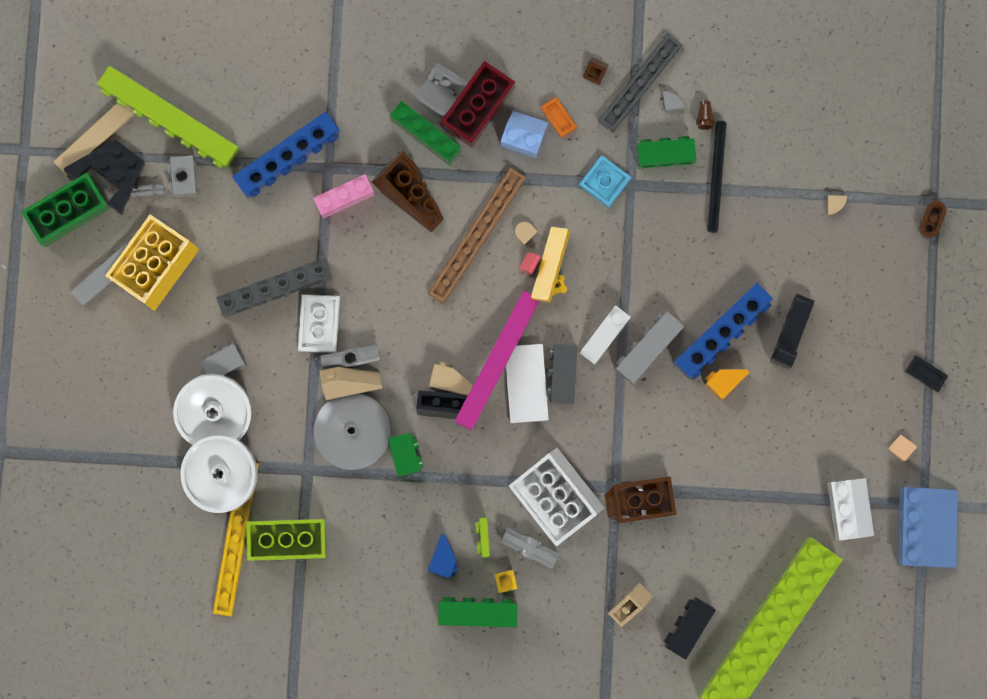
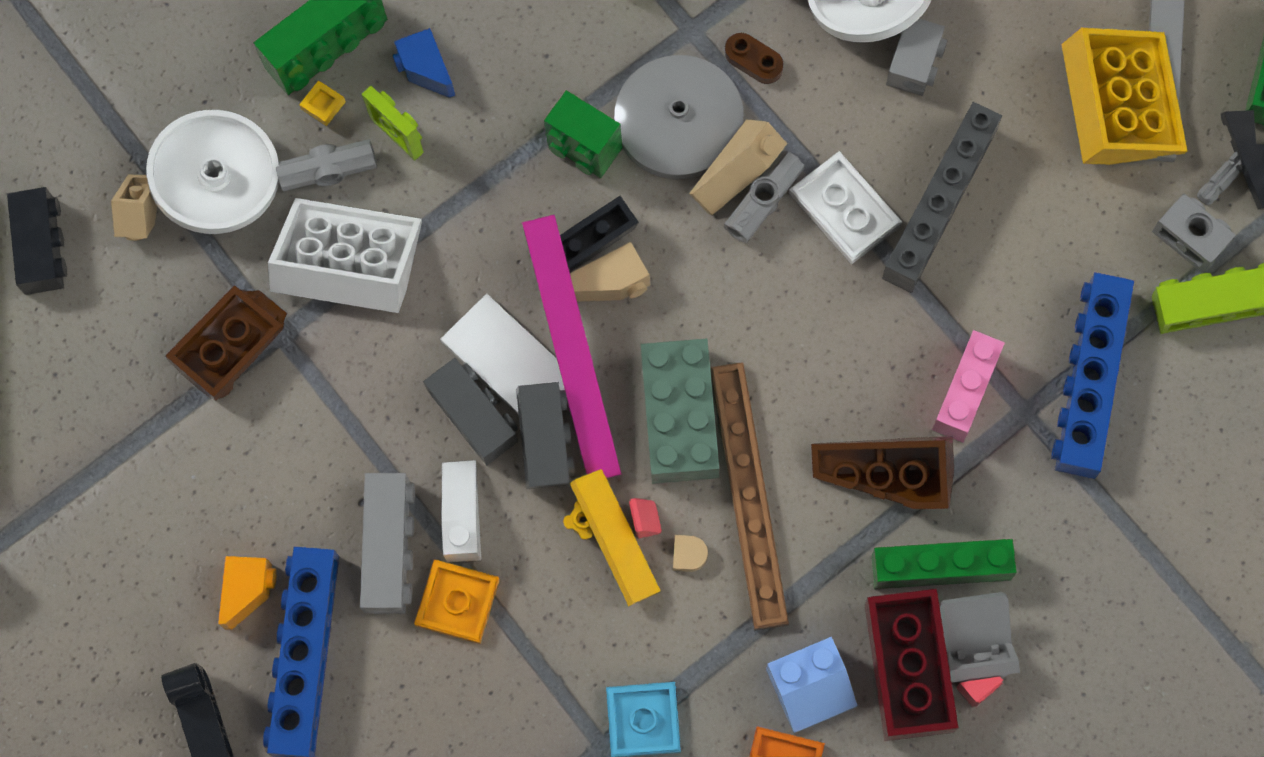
camera: 145 degrees right, 10 degrees down
(294, 428) = (752, 57): none -> reddish brown plate
(459, 70) = (978, 690): none -> coral slope
(475, 294) = (680, 411): none -> sand green brick
(542, 333) = (544, 435): none -> dark grey brick
(565, 585) = (209, 146): none -> white dish
(639, 298) = (457, 601): none -> light orange tile

